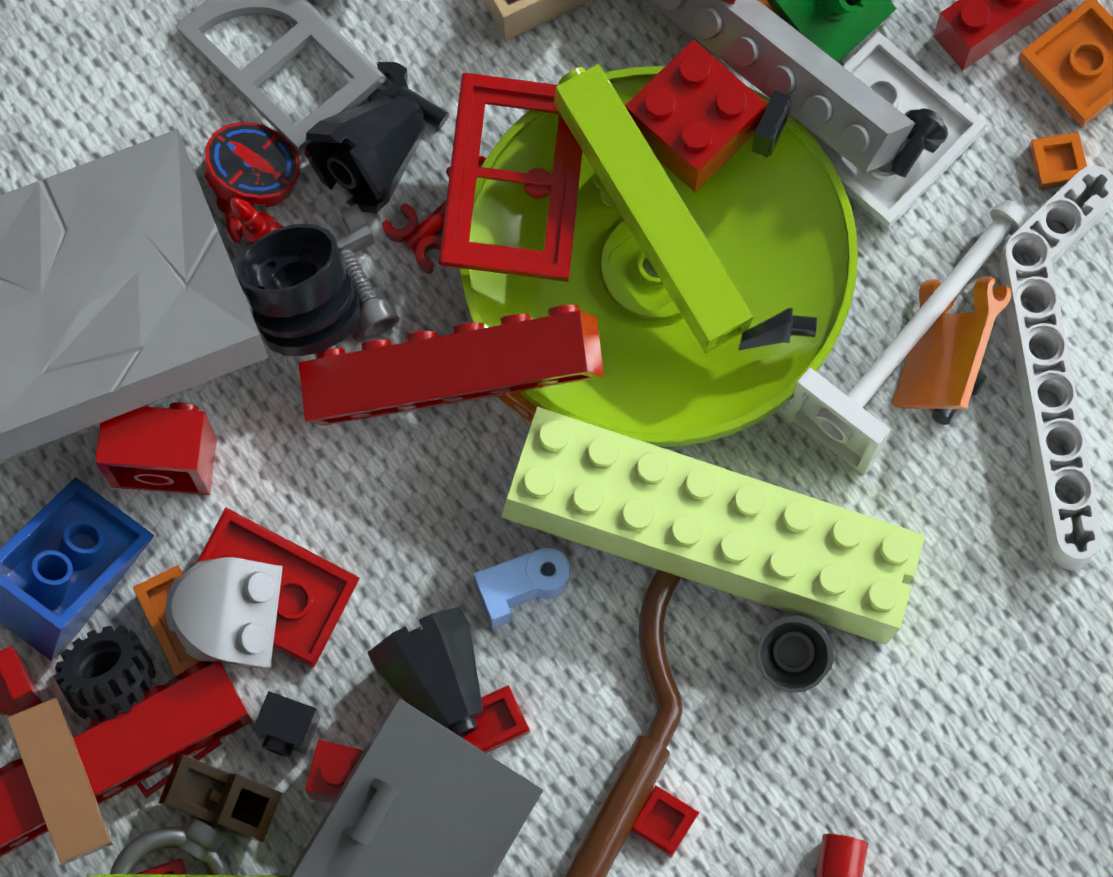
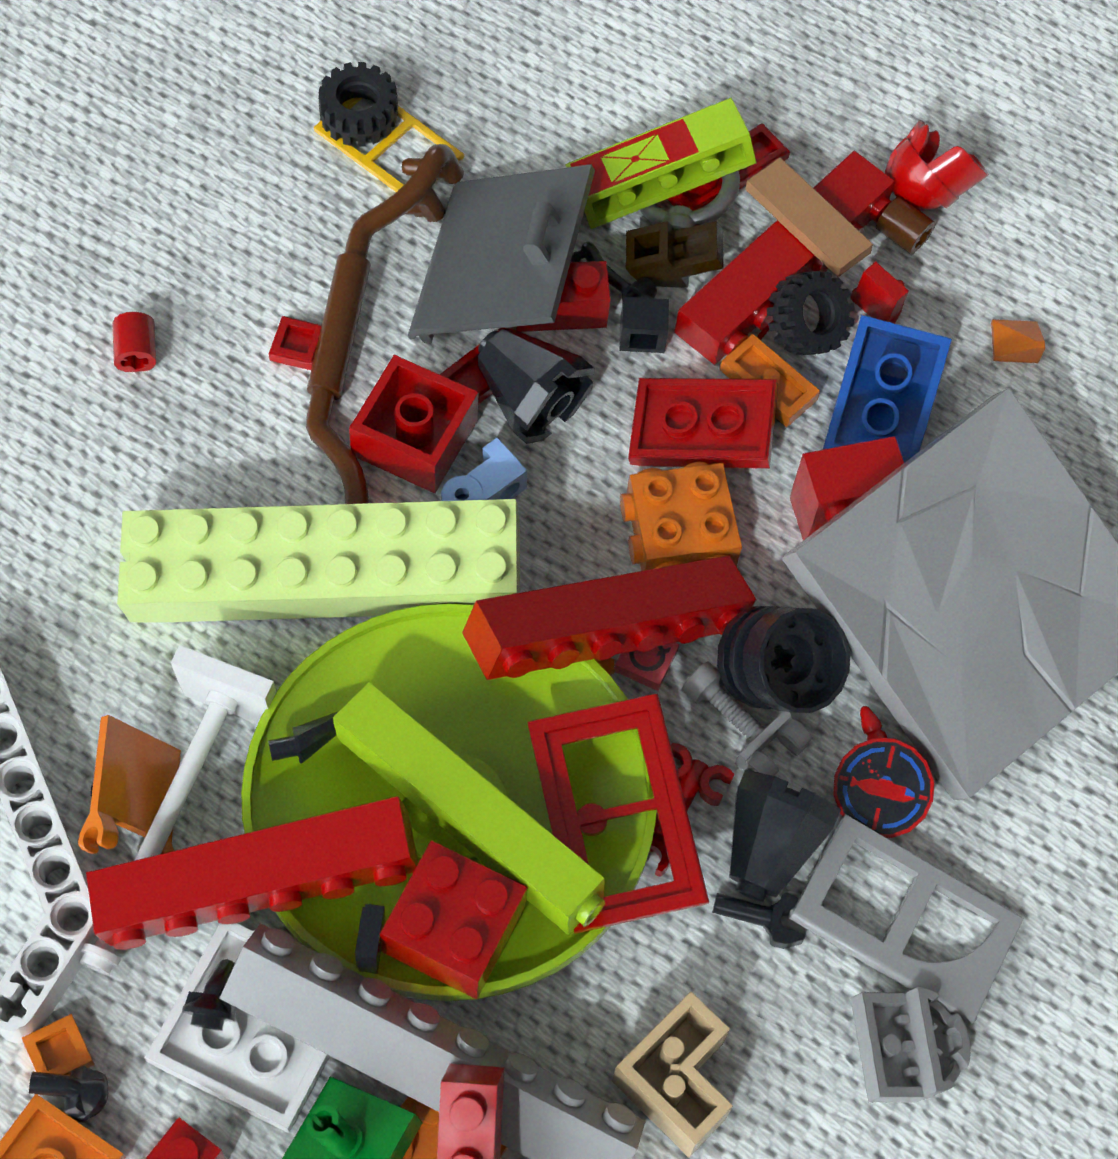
camera: 155 degrees right, 10 degrees down
(226, 611) = (729, 373): light grey slope -> none
(254, 223) = (843, 725): red bar -> none
(272, 773) = (640, 287): none -> black piece
(334, 485) = (680, 516): none -> orange brick
(572, 663) = (414, 423): none -> red brick
(792, 641) = (215, 471): dark grey helmet -> none
(860, 211) = (252, 873): none -> red brick
(1045, 112) = (83, 1090): none -> black plate

